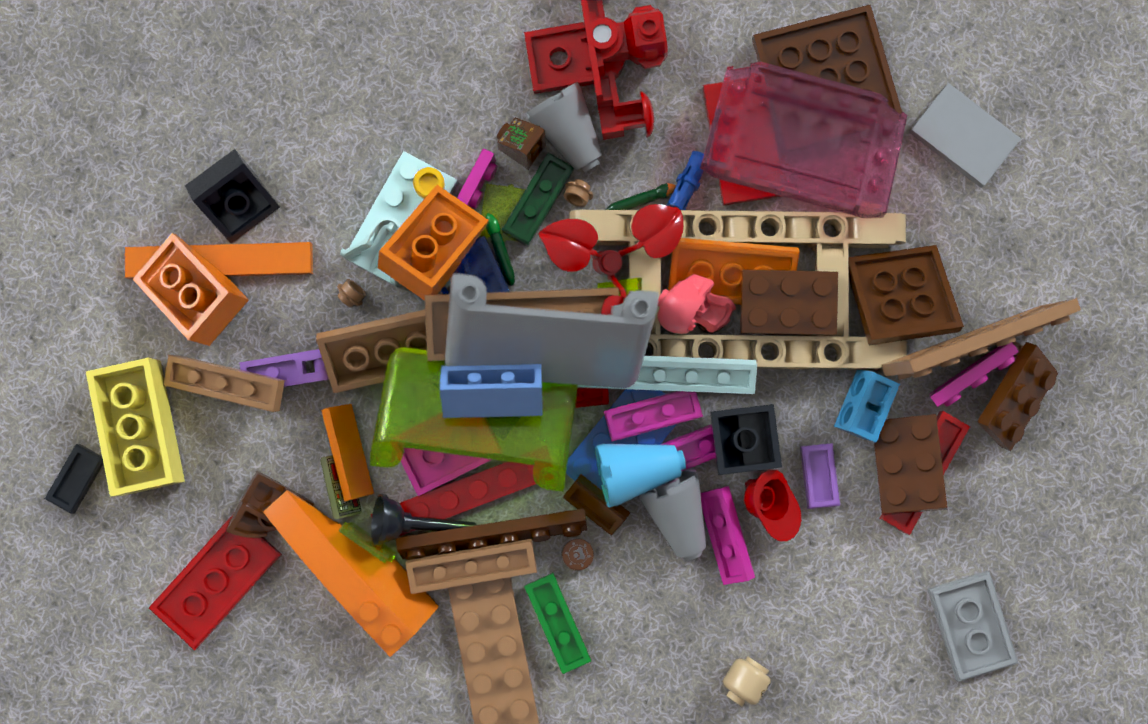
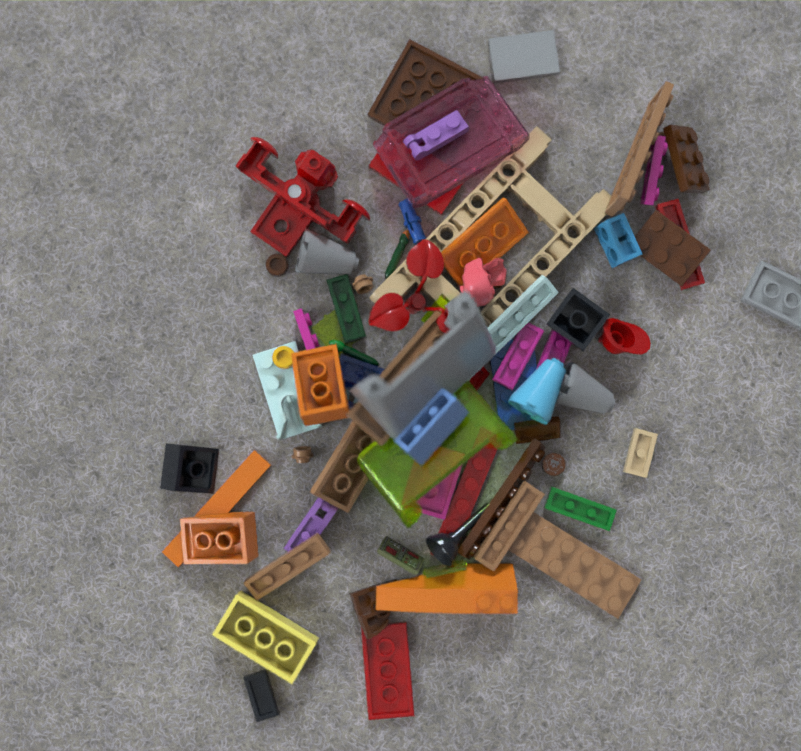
camera: 40 degrees left, 0 degrees up
(347, 452) = (386, 535): orange tile -> none
(516, 90) = (277, 265): none -> reddish brown tile
(521, 141) = (307, 287): reddish brown slope -> none
(672, 631) = (640, 452): none -> tan plate
(726, 536) = (617, 377): dark pink plate -> none
(746, 681) = (702, 438): tan head -> none
(789, 302) = (527, 229): reddish brown plate -> none
(796, 122) = (436, 135): none -> medium lavender plate
(820, 476) = (630, 300): medium lavender tile -> none
(903, 295) = (578, 167): reddish brown plate -> none

